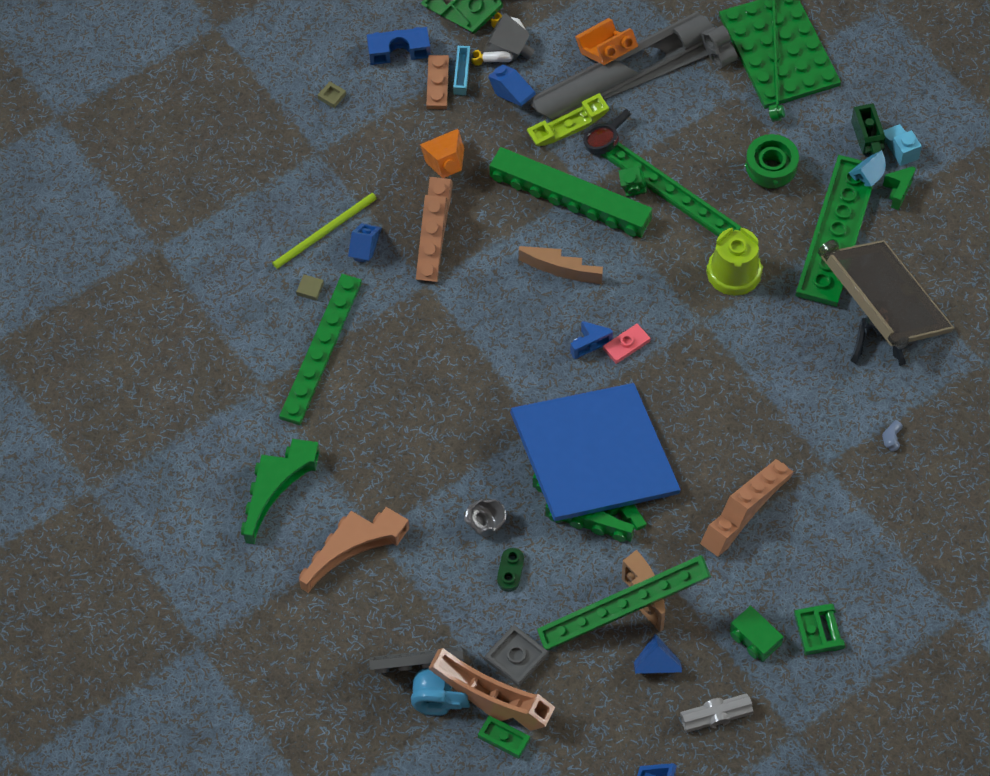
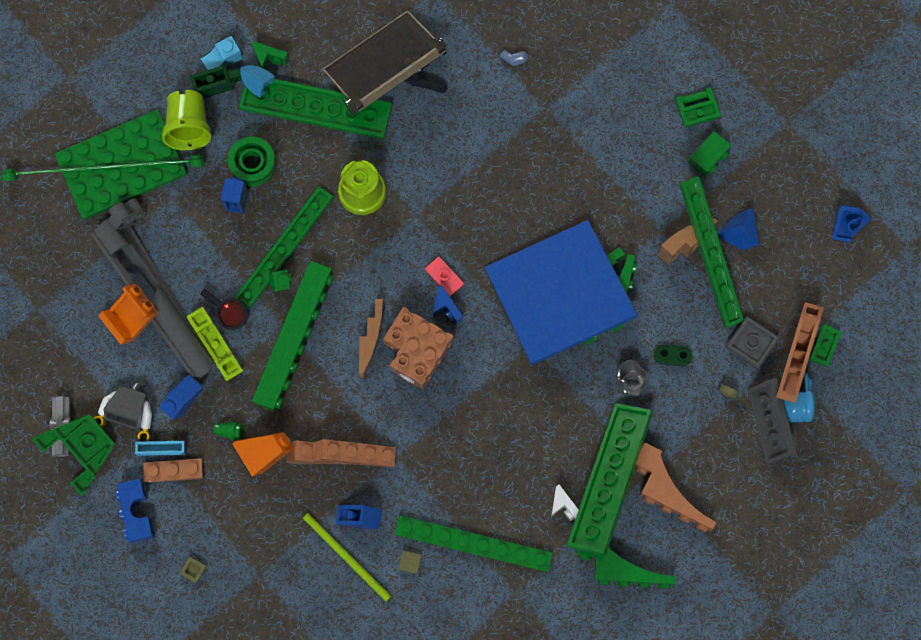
camera: 95 degrees left, 15 degrees up
(354, 436) = (562, 501): none -> white slope
(370, 478) = (610, 479): none -> green plate
(459, 621) = (729, 392): none -> olive tile
(473, 132) = (230, 430): none -> green cone
(541, 302) = (418, 348): none -> nougat piece
(716, 712) = (782, 181): light grey piece -> none
(733, 141) = (234, 195): none -> blue brick
(743, 506) = (597, 164): nougat arch -> none
(821, 99) = (186, 121): none -> lime piece

